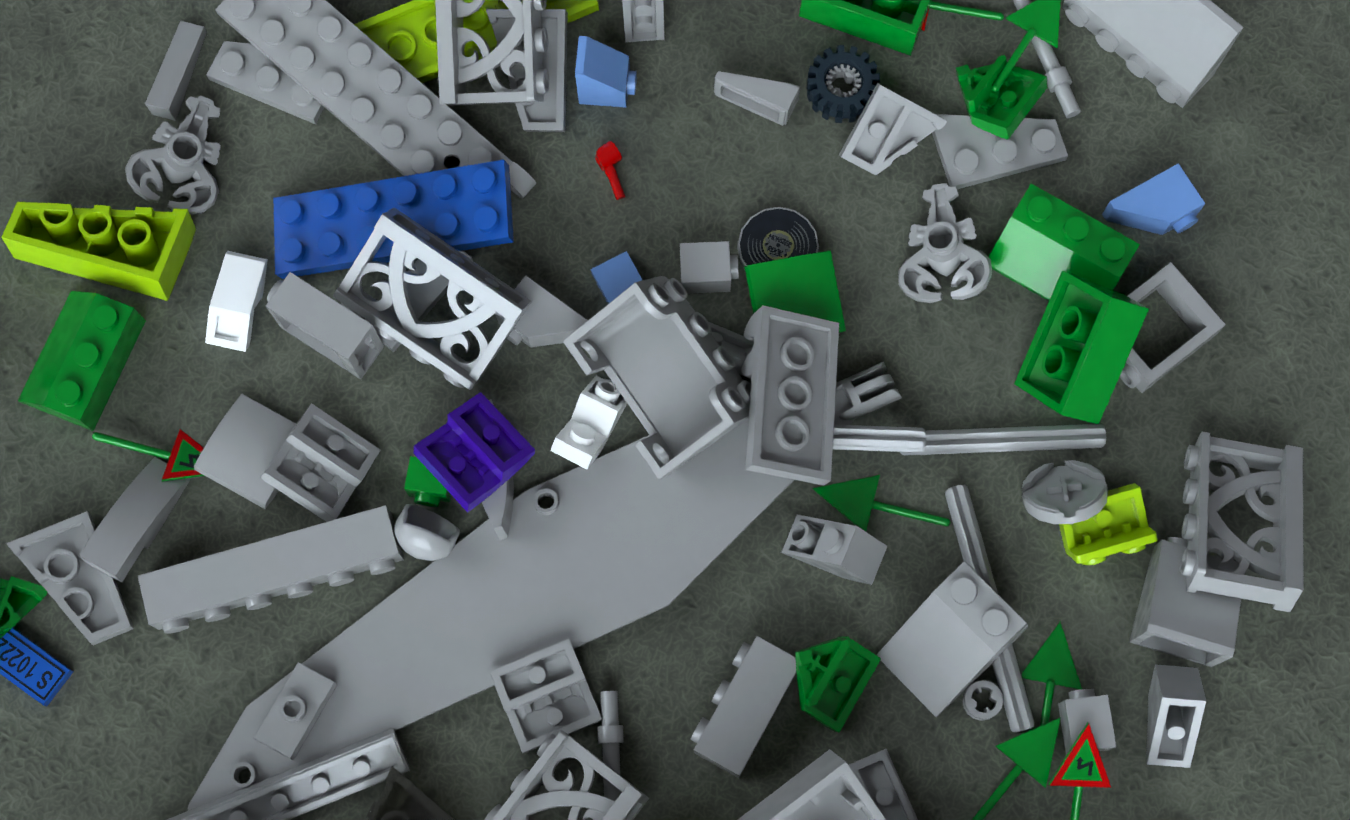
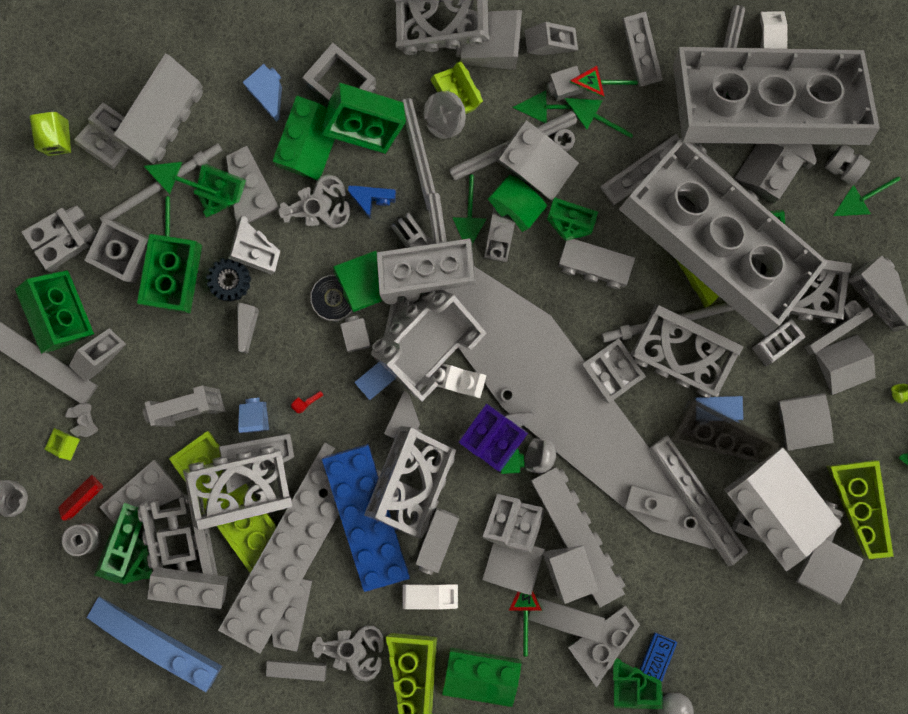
camera: 110 degrees left, 10 degrees up
(208, 536) = (570, 573): none -> light grey slope
(882, 585) = (518, 201): none -> green slope
(941, 330) = (365, 196): none -> blue slope

